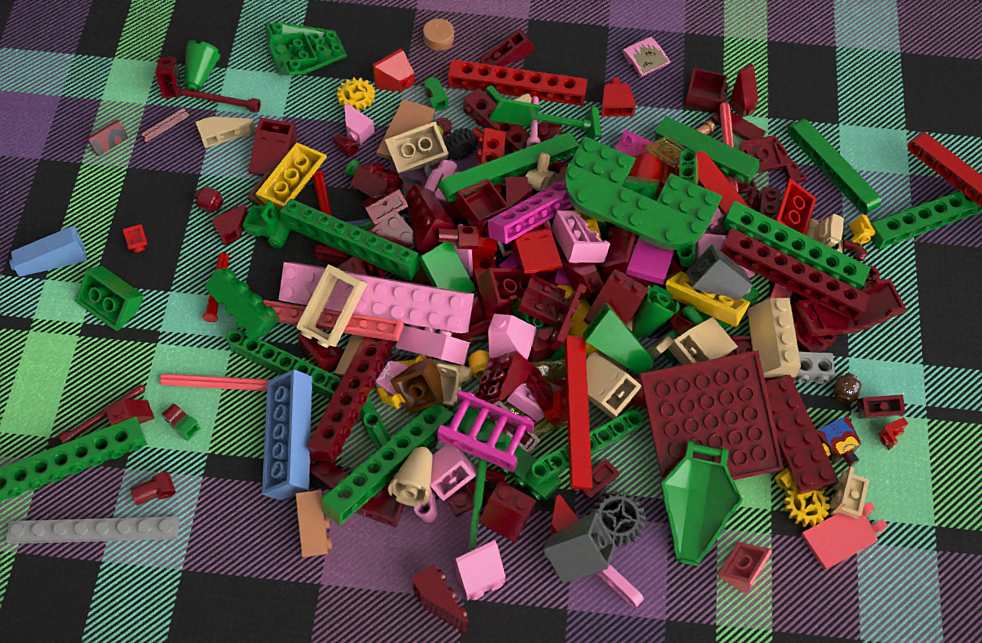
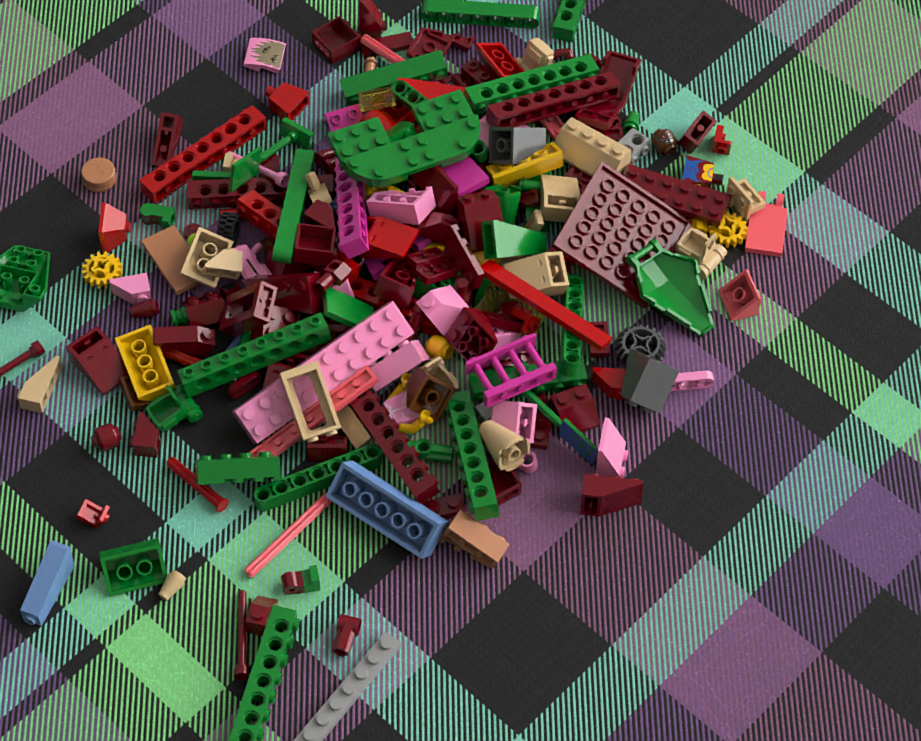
camera: 50 degrees left, 5 degrees down
(112, 334) = (172, 583): none -> tan cone
(333, 185) = (186, 339): none -> dark red slope
(419, 161) = (225, 264): none -> tan slope
(759, 498) = (704, 249): none -> tan piece
(841, 349) = (630, 122): none -> green cone
(862, 230) = (551, 37): yellow bracket -> none

